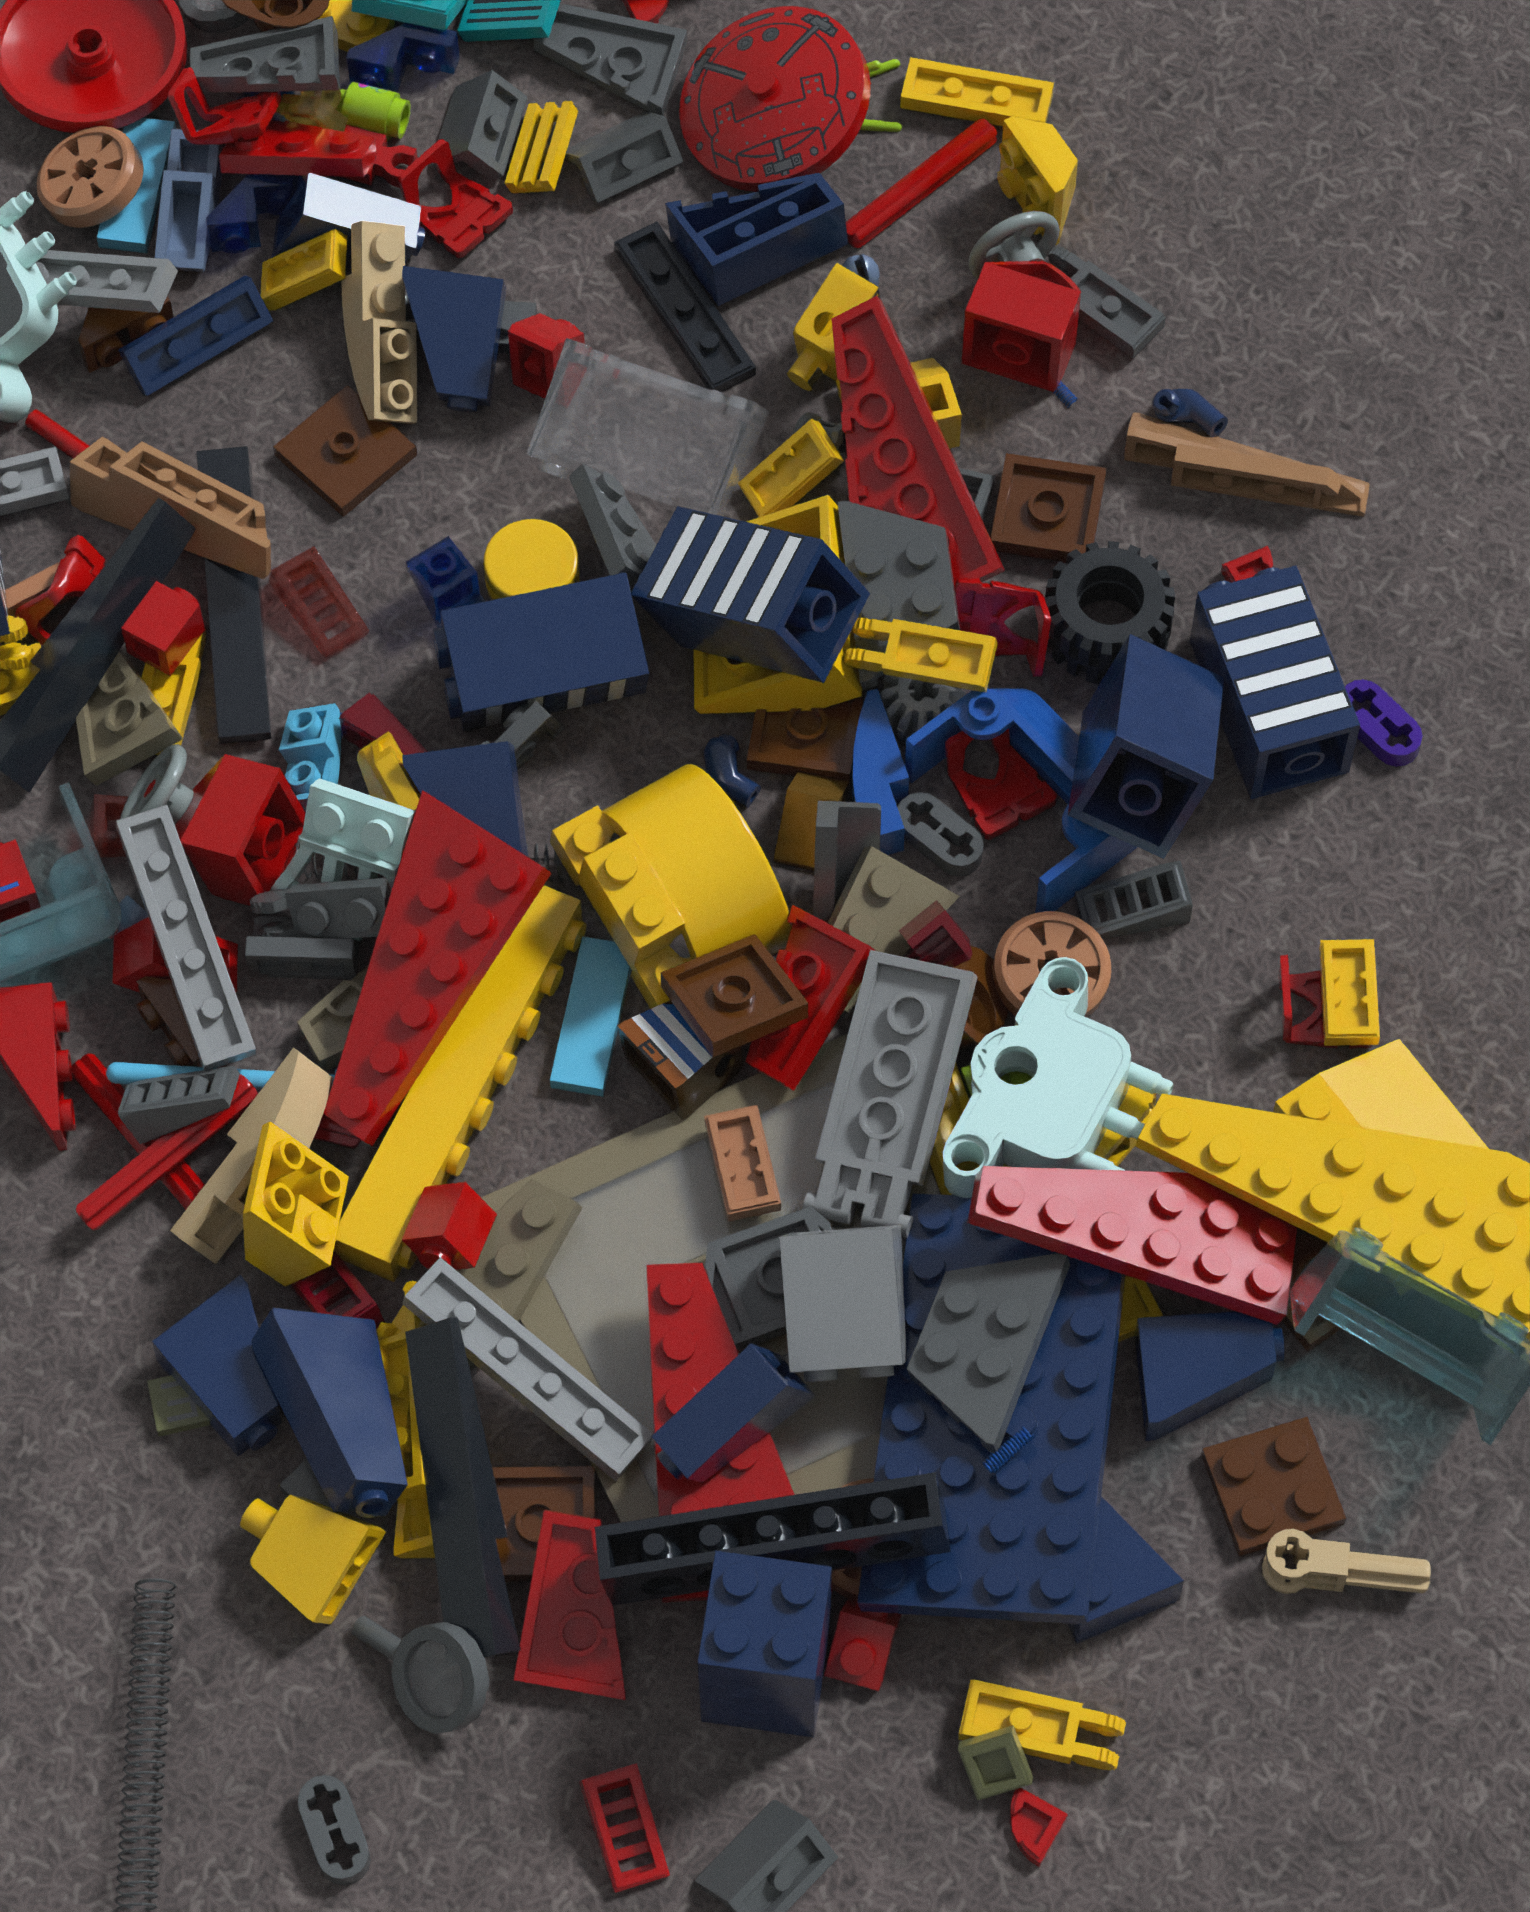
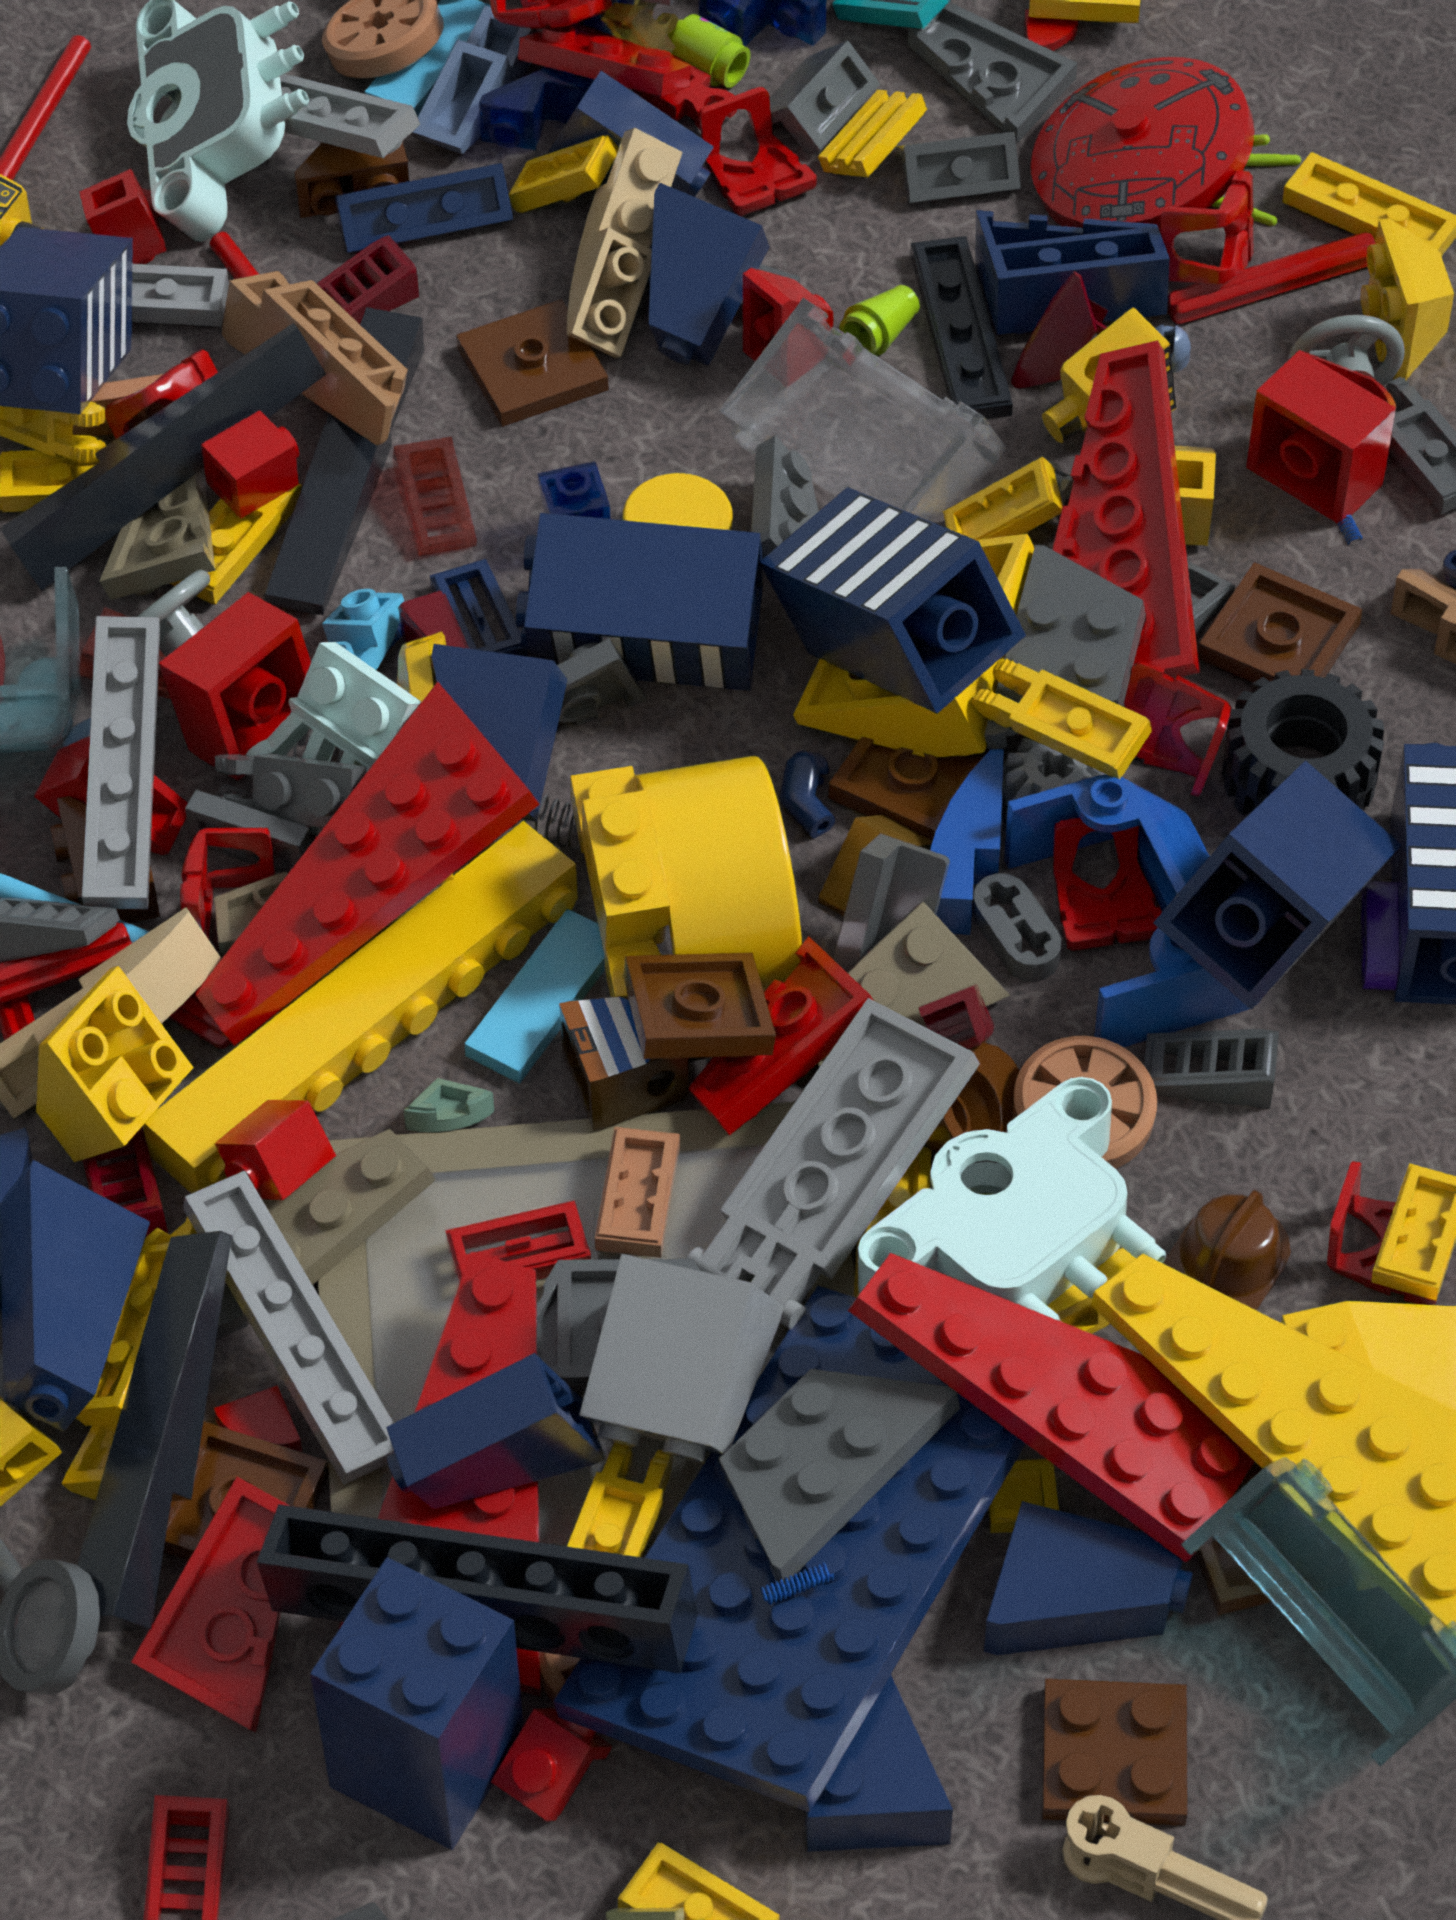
camera: 20 degrees right, 10 degrees down
(171, 404) = (371, 266): none -> dark red slope
(280, 1003) = (198, 885): none -> red piece
(424, 726) = (460, 577): none -> dark blue tile
(525, 1448) = (262, 1417): none -> red tile
(560, 1138) = (448, 1107): none -> sand green tile
(617, 323) = (881, 318): none -> lime cone
(694, 1198) = (534, 1253): none -> red tile
(775, 297) = (1060, 333): none -> dark red piece
(840, 1436) = (619, 1511): none -> yellow hinge
(879, 154) = (1232, 215): none -> red piece
(1207, 1056) = (1233, 1248): none -> reddish brown piece
(1231, 766) = (1379, 935): none -> dark purple beam

